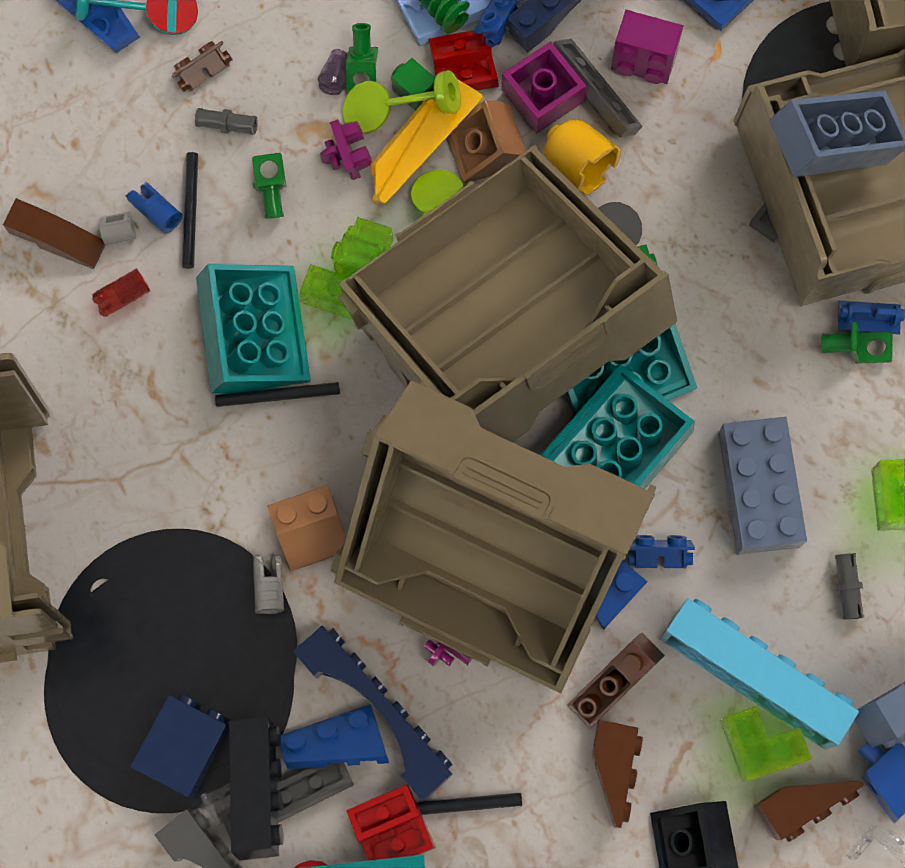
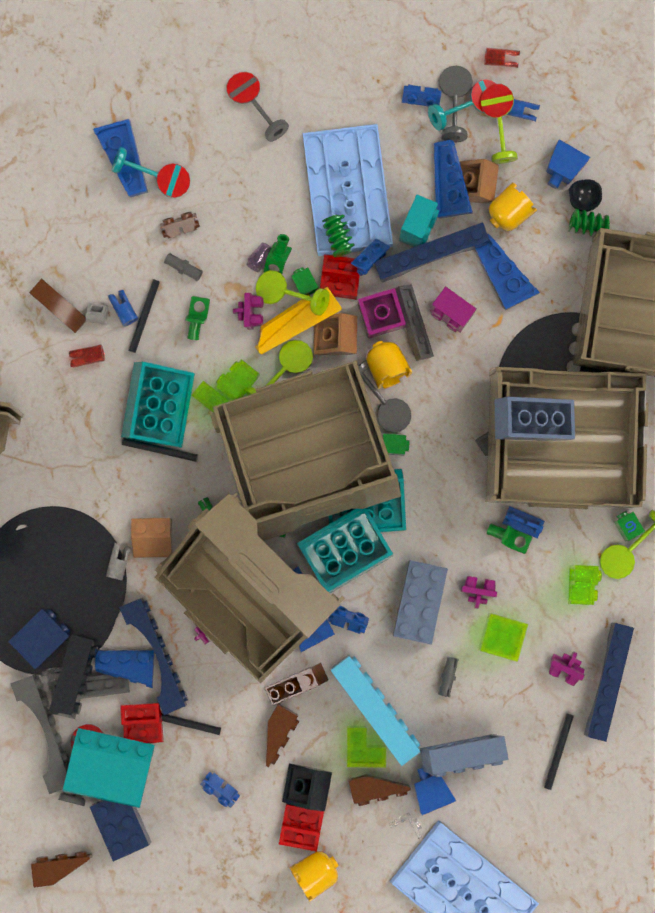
camera: 15 degrees right, 10 degrees up
(857, 435) = (470, 587): none -> magenta hips

